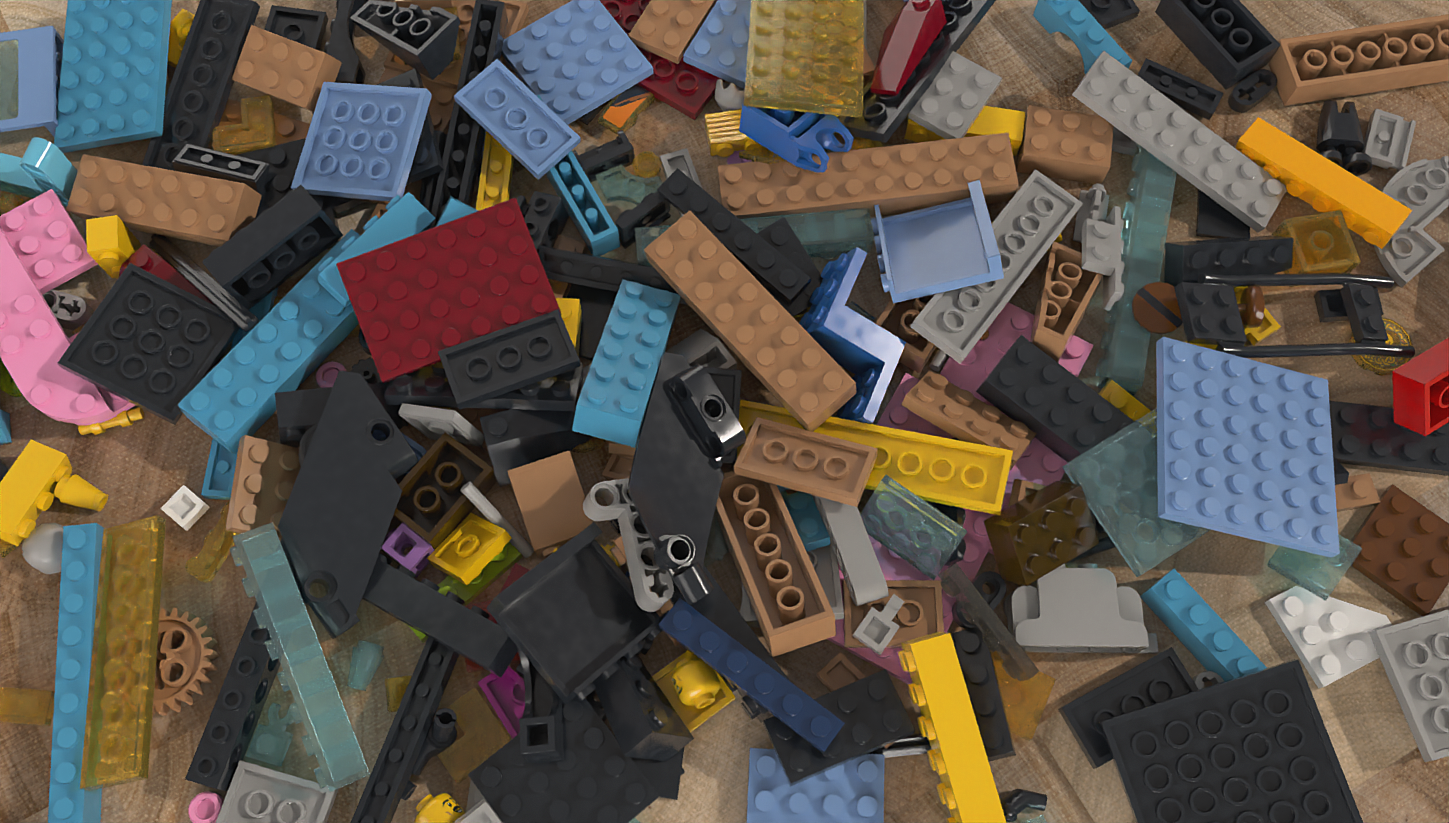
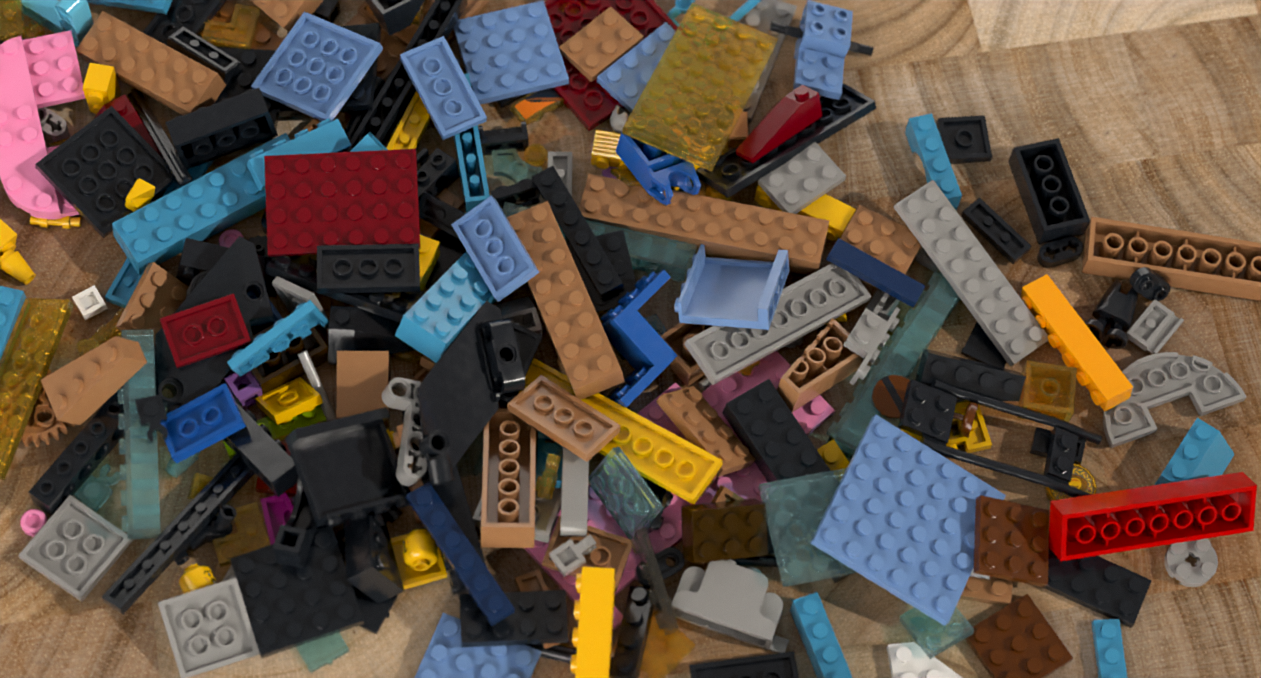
camera: 15 degrees right, 5 degrees down
(200, 359) = (139, 195): none -> yellow slope
(216, 611) = (92, 379): none -> medium nougat wedge
(305, 629) = (152, 413): none -> black plate
(337, 501) = (205, 330): none -> dark red plate
(372, 618) = (202, 423): none -> blue plate
(430, 480) = (278, 338): none -> dark azure wing
(651, 286) = (495, 248): none -> medium blue plate
(816, 547) = (546, 483): none -> clear yellow plate
(1079, 175) = (875, 272): none -> dark blue tile
(1360, 431) = (1011, 541): none -> reddish brown plate
(1369, 93) = (1149, 284): none -> black plate

